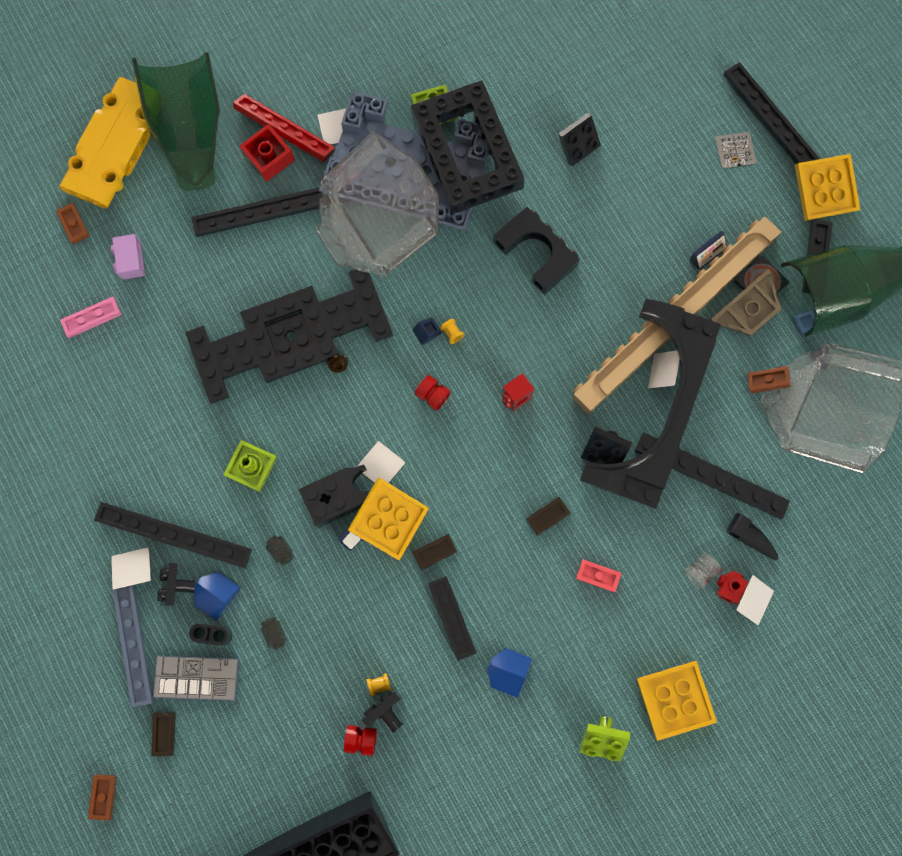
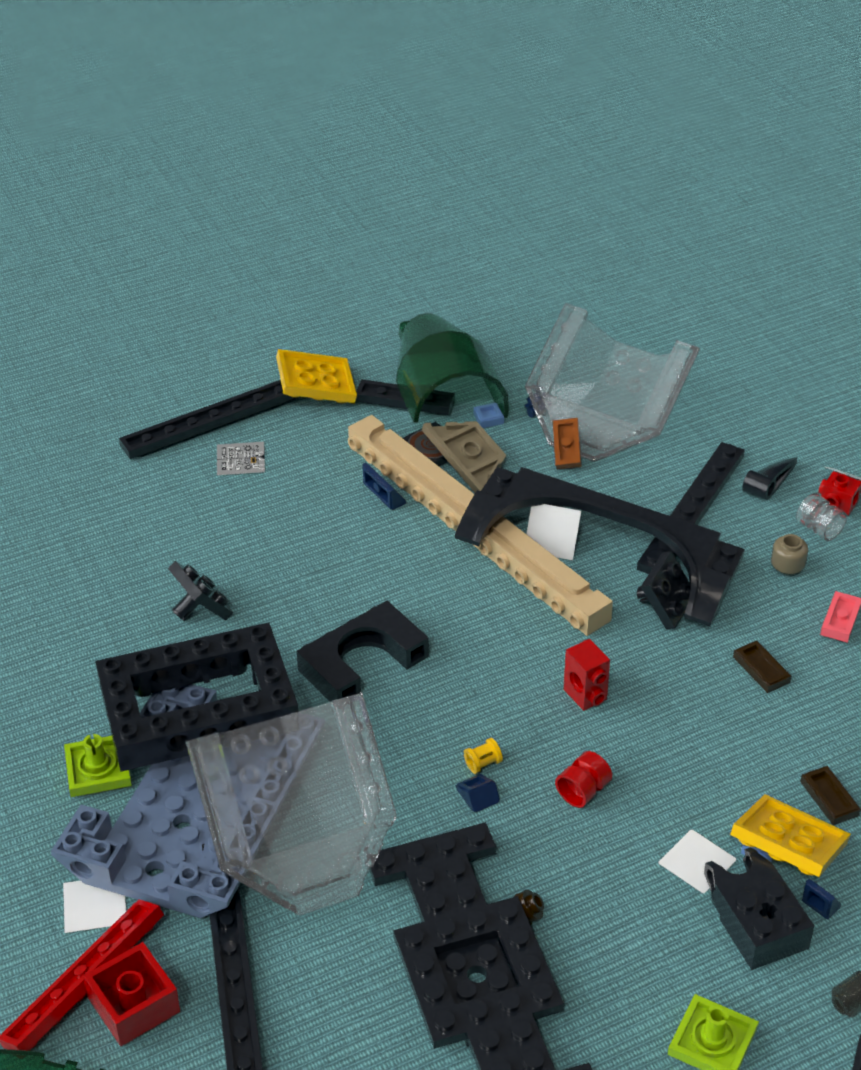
camera: 90 degrees left, 35 degrees down
(662, 540) = (789, 554): none -> dark tan head

